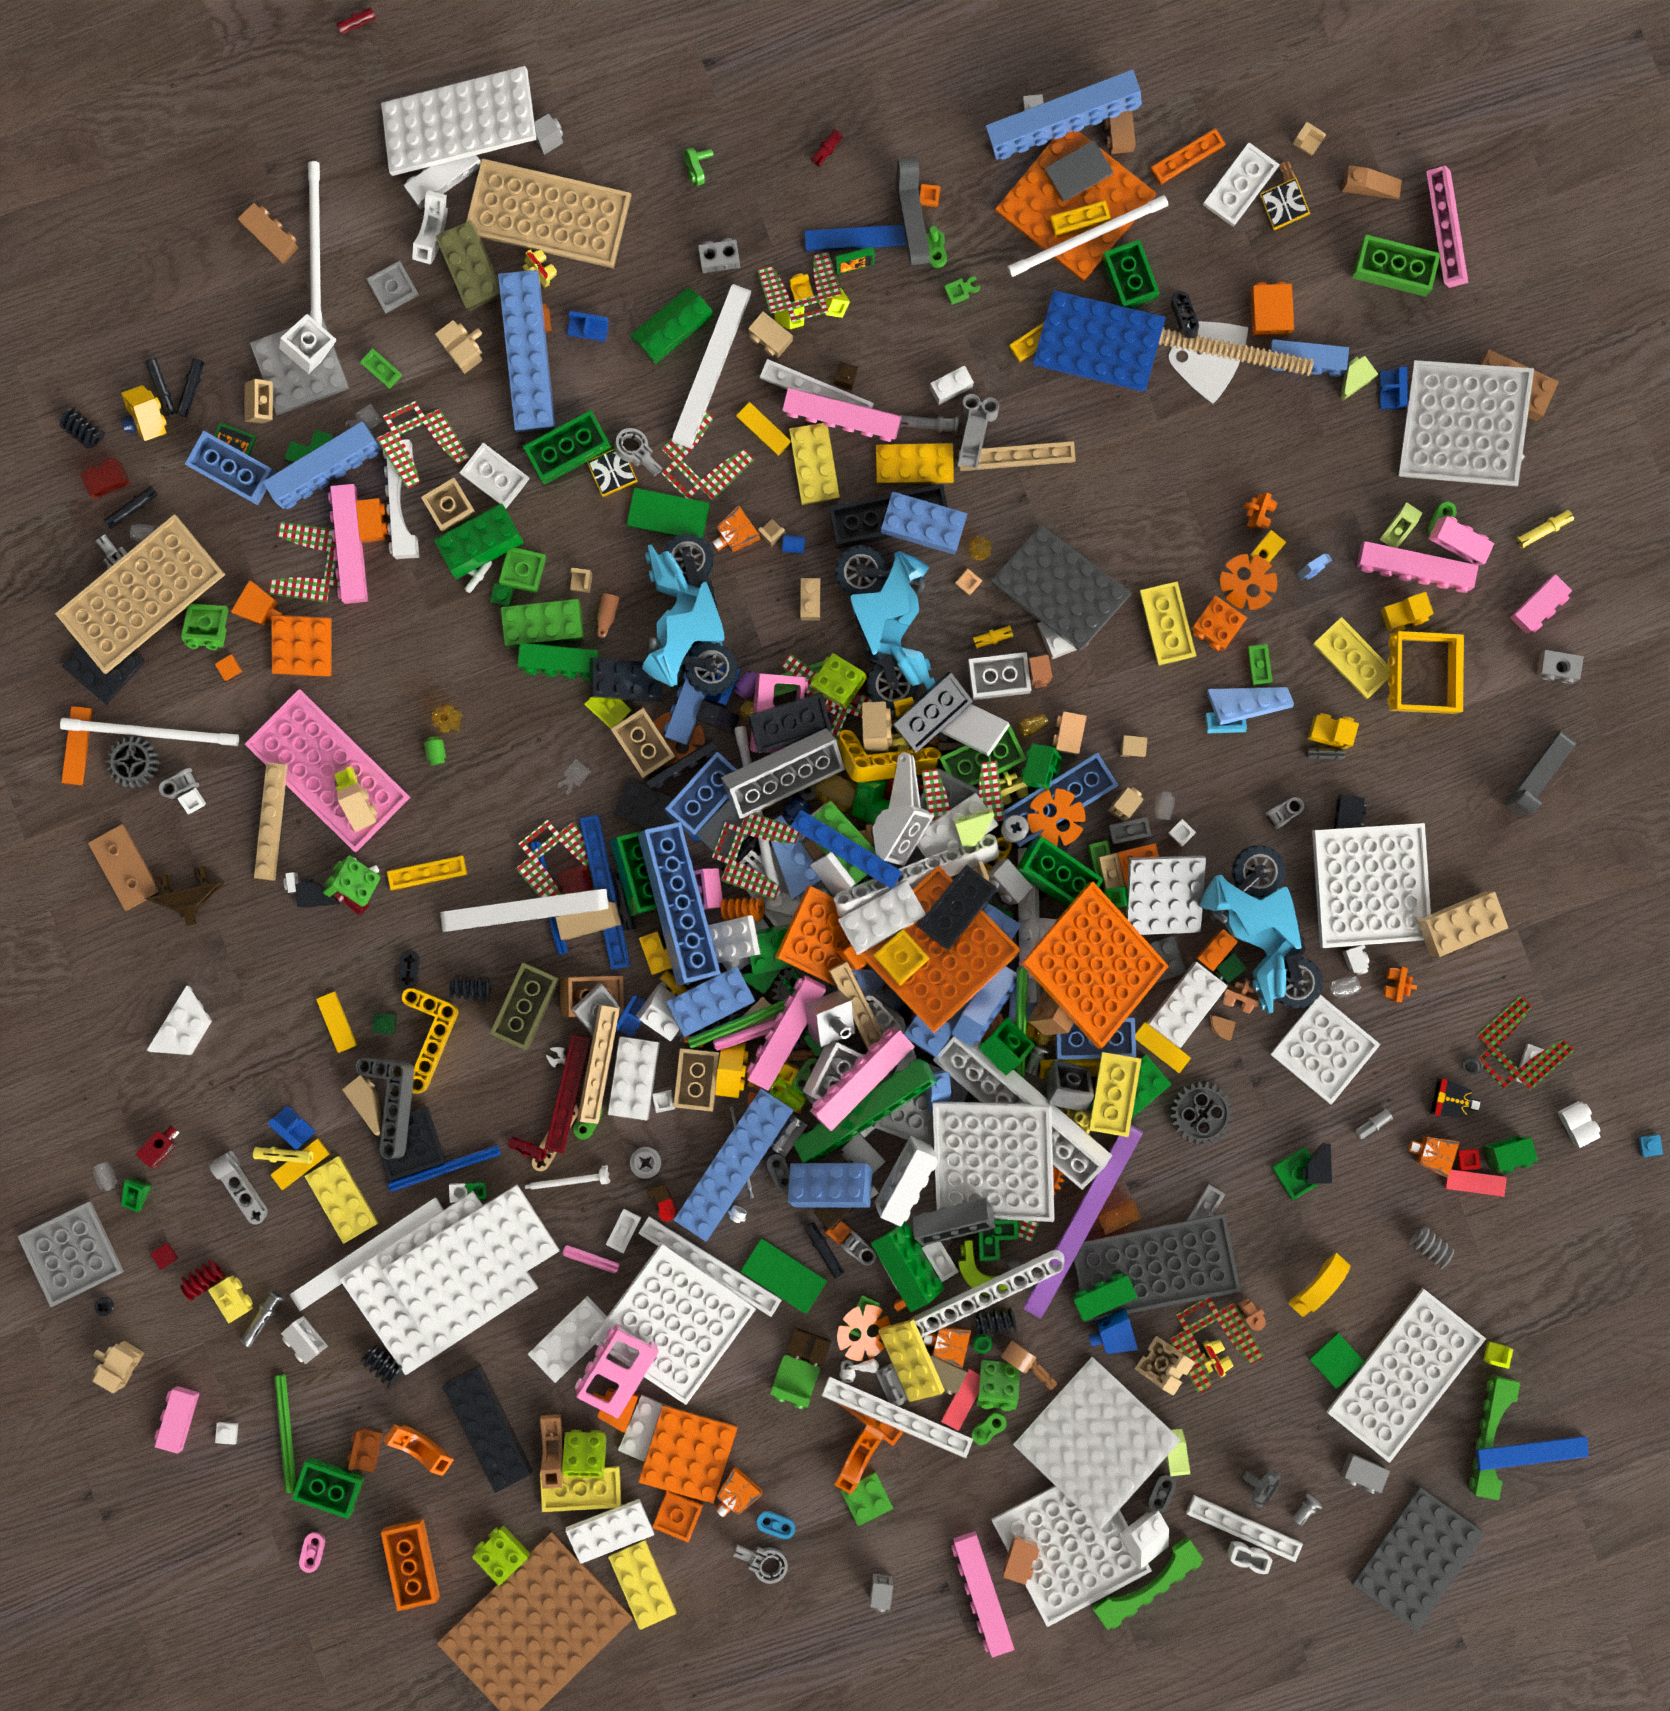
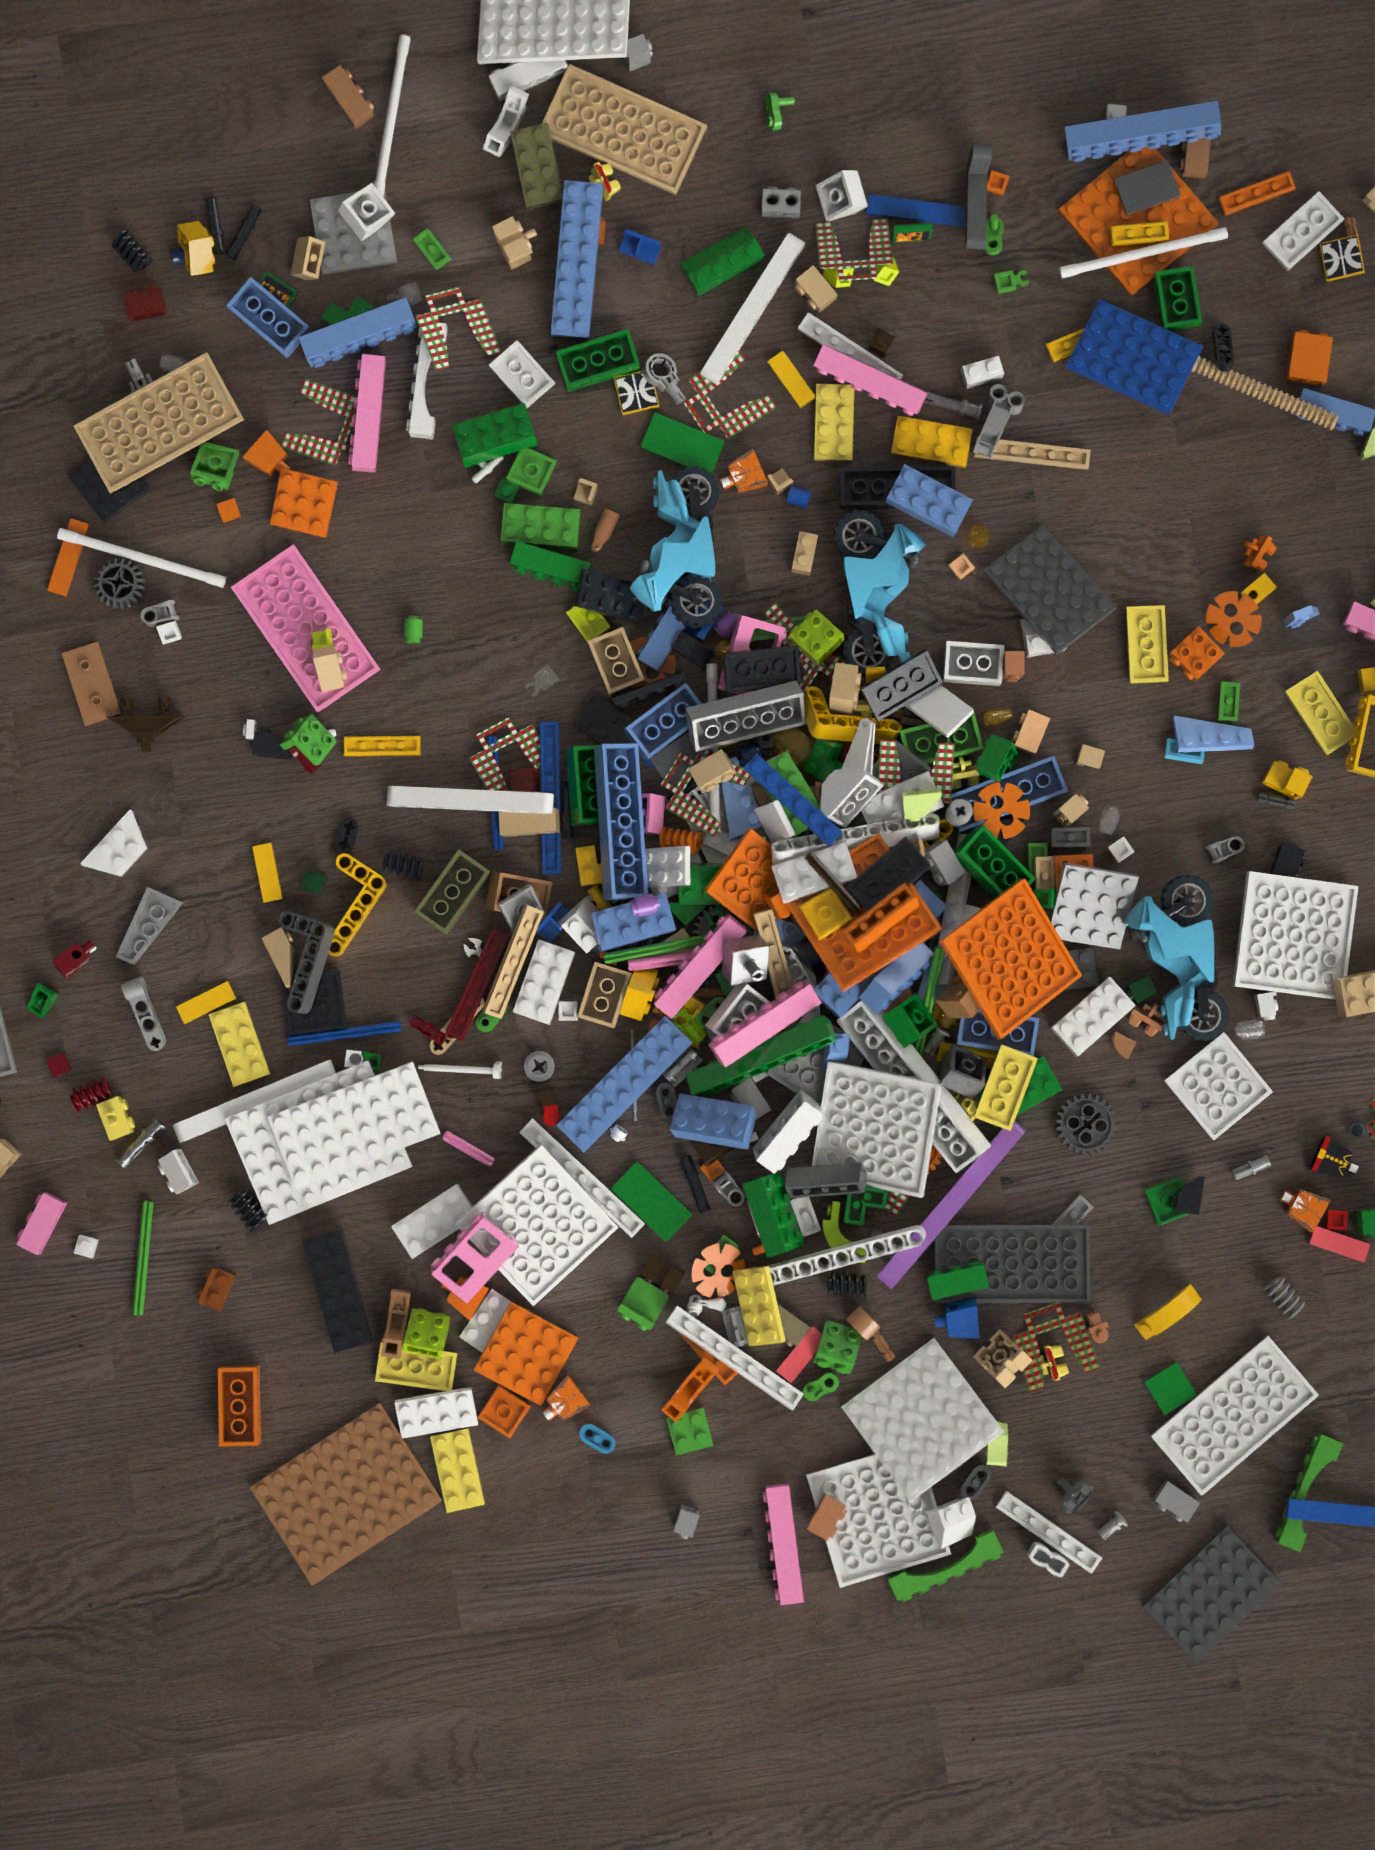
camera: 15 degrees right, 0 degrees up
(104, 1176) = (16, 977): clear brick -> none
(131, 507) = (171, 333): black pin -> none
(227, 1092) = (149, 920): none -> light grey wing
(262, 1153) = (172, 984): light yellow pin -> none
(270, 821) = (241, 666): tan plate -> none
(292, 1128) = (205, 965): blue panel -> none
(312, 1551) = (146, 1375): bright pink plate -> none
(328, 1487) = (175, 1317): green brick -> none
(371, 520) = (394, 394): orange brick -> none
(392, 286) = (458, 171): light grey tile -> none
(420, 1447) = (269, 1296): orange arch -> none
(449, 505) = (472, 395): tan brick -> none
(452, 723) = (435, 605): clear yellow brick -> none
(500, 1554) = (327, 1413): lime brick -> none
(623, 1231) = (505, 1127): white plate -> none
(718, 983) = (644, 905): none -> medium lavender brick
(760, 835) = (712, 771): none -> tan brick
(762, 1555) = (567, 1464): light grey pin -> none
(777, 236) = (841, 195): none -> white slope
(800, 287) = (854, 248): yellow bracket -> none
(826, 147) = (906, 117): dark red pin -> none
(902, 925) = (832, 882): none -> dark brown axle
(949, 1344) = (798, 1298): orange torso -> none
(958, 951) = (881, 918): none -> orange brick
(982, 1343) = (830, 1304): green plate -> none
(993, 637) = (974, 624): yellow pin -> none
(1118, 1216) = (986, 1207): clear orange brick -> none
(1161, 1047) = (1060, 1053): yellow tile -> none
(1210, 373) = (1236, 409): white piece -> none
(1216, 950) = (1131, 969): orange brick -> none
(1399, 975) = (1298, 1045): orange hips -> none
(1498, 1354) = (1327, 1413): neon yellow panel -> none

